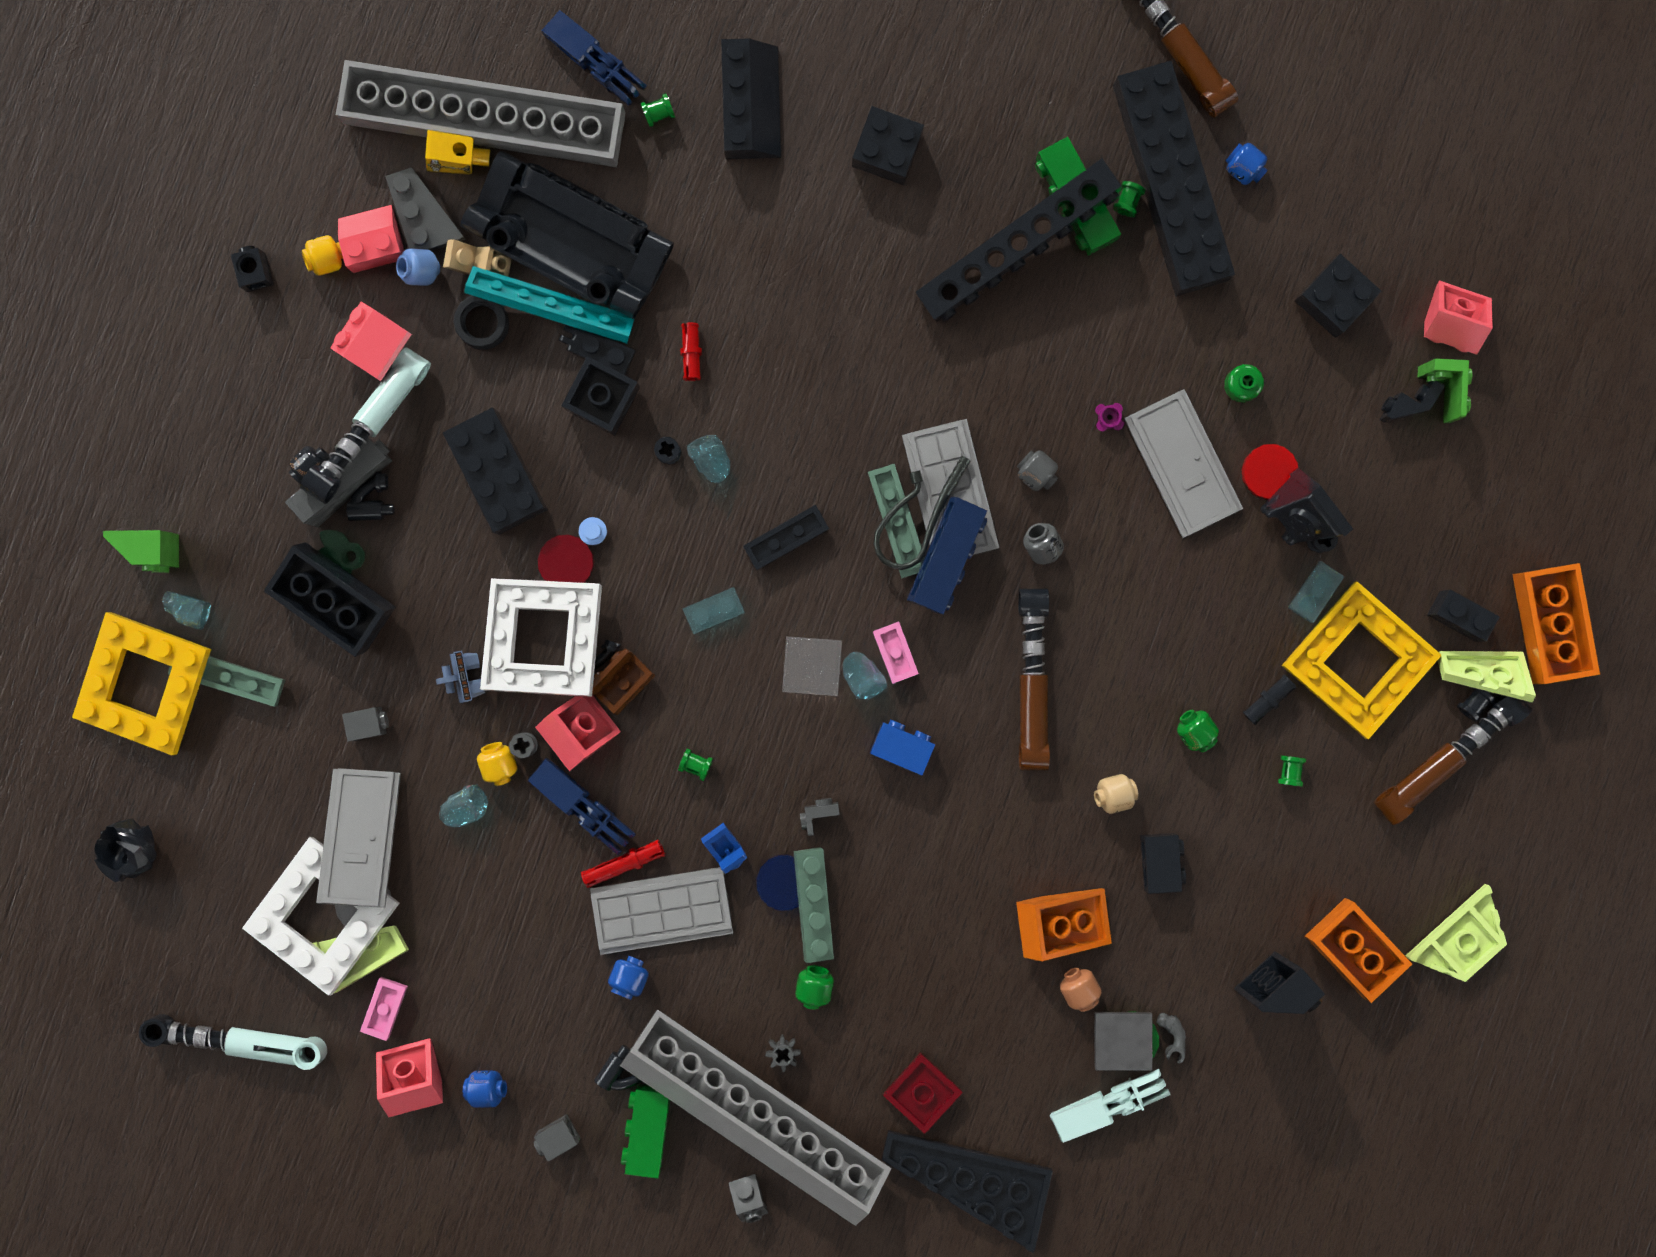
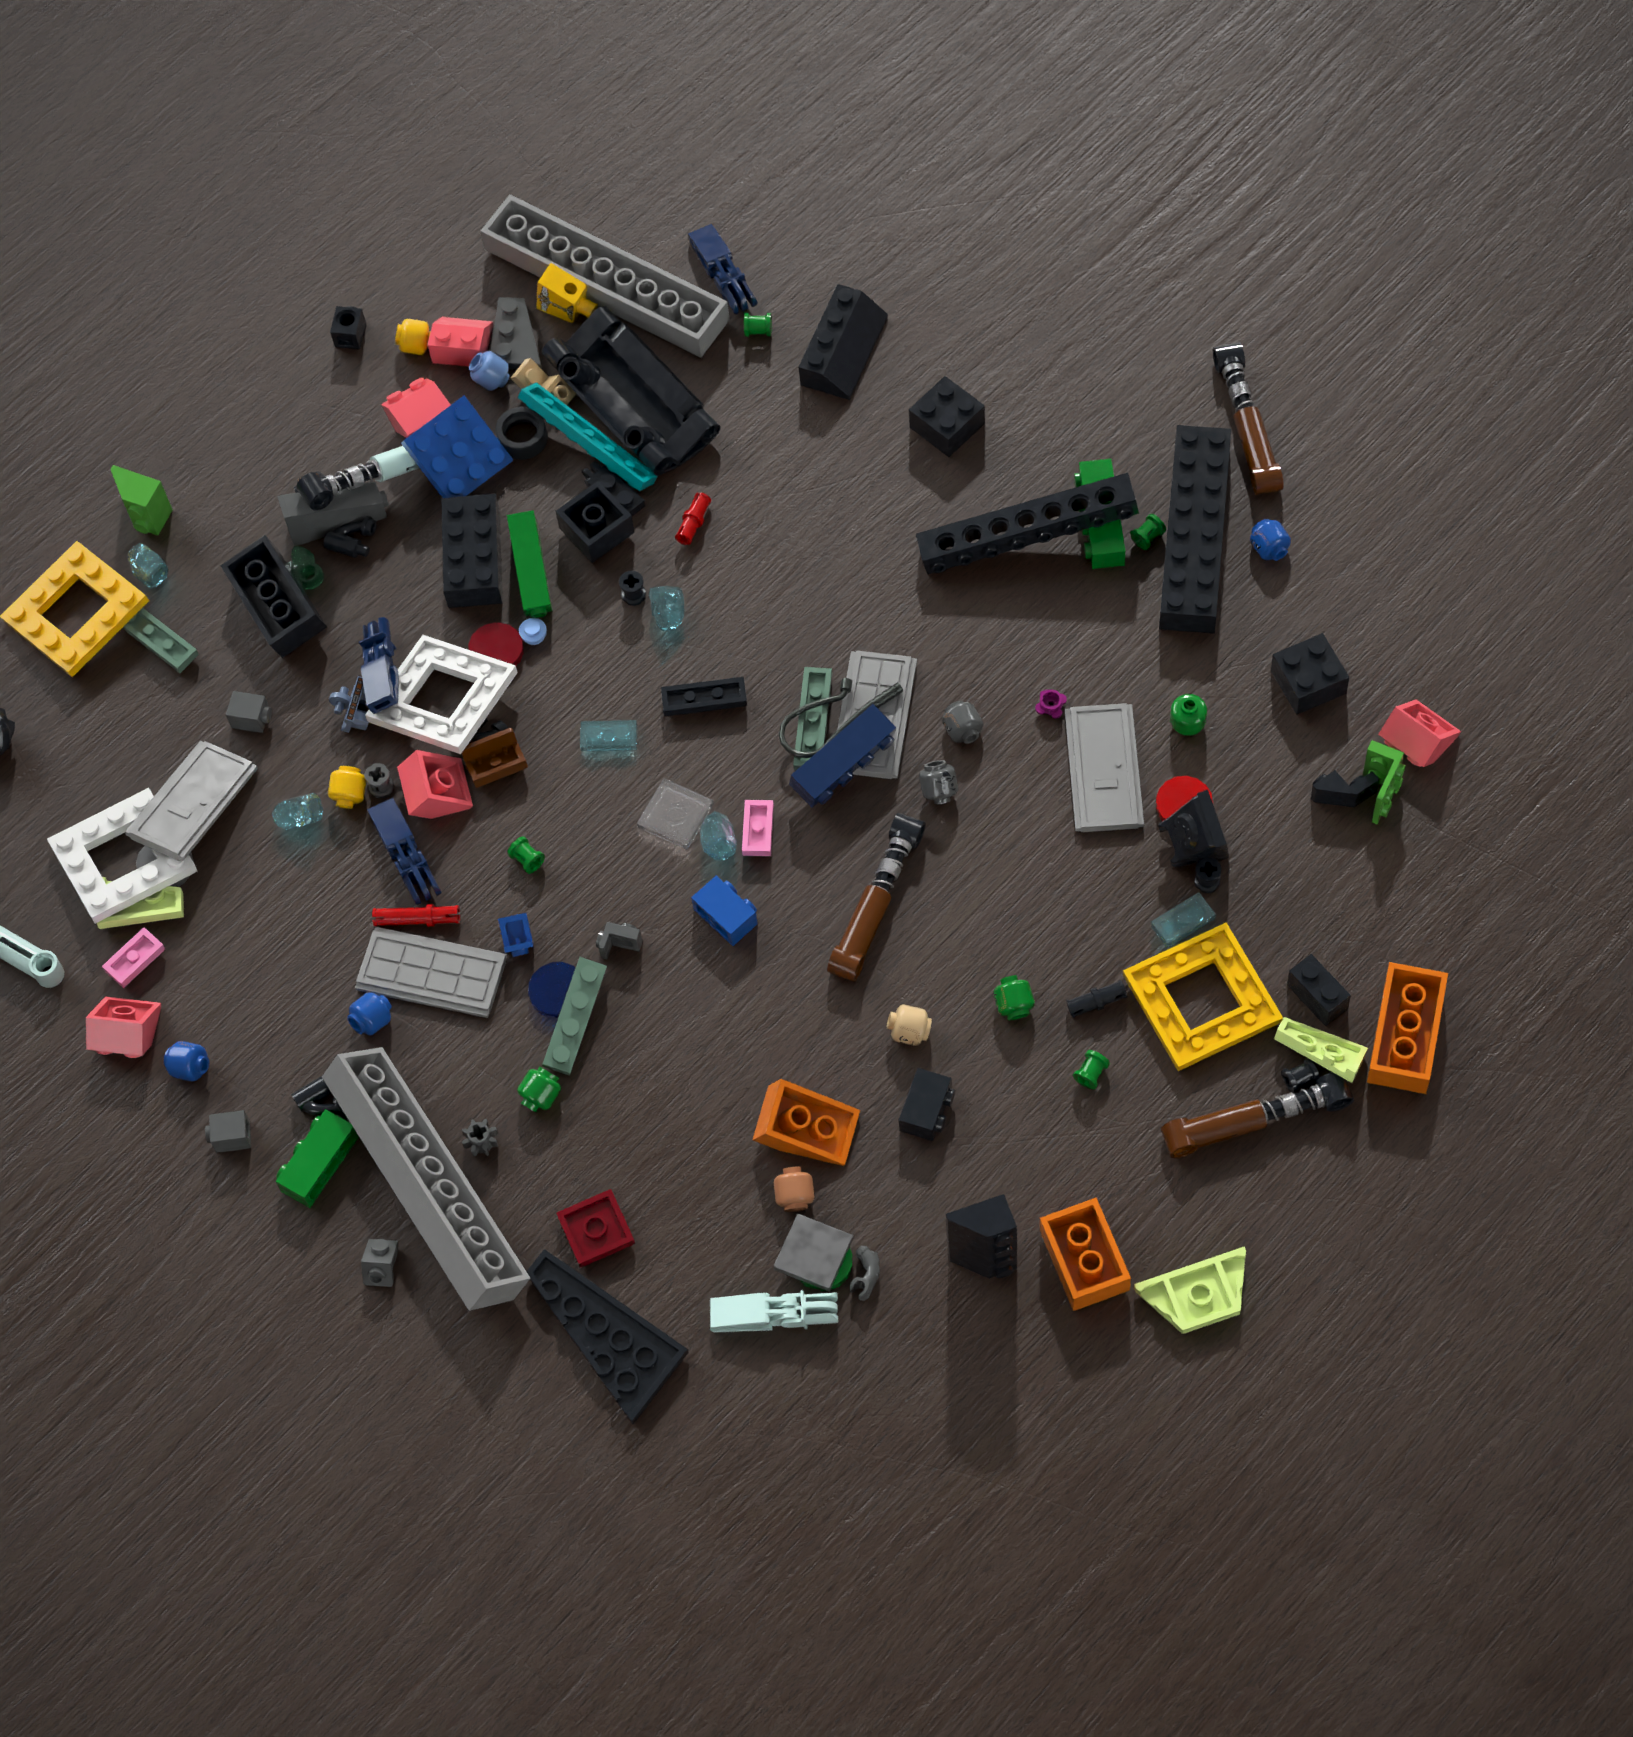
camera: 30 degrees right, 25 degrees down
(431, 373) = (457, 450): none -> blue plate
(471, 639) = (378, 672): none -> dark blue arm
(560, 467) = (529, 564): none -> green slope

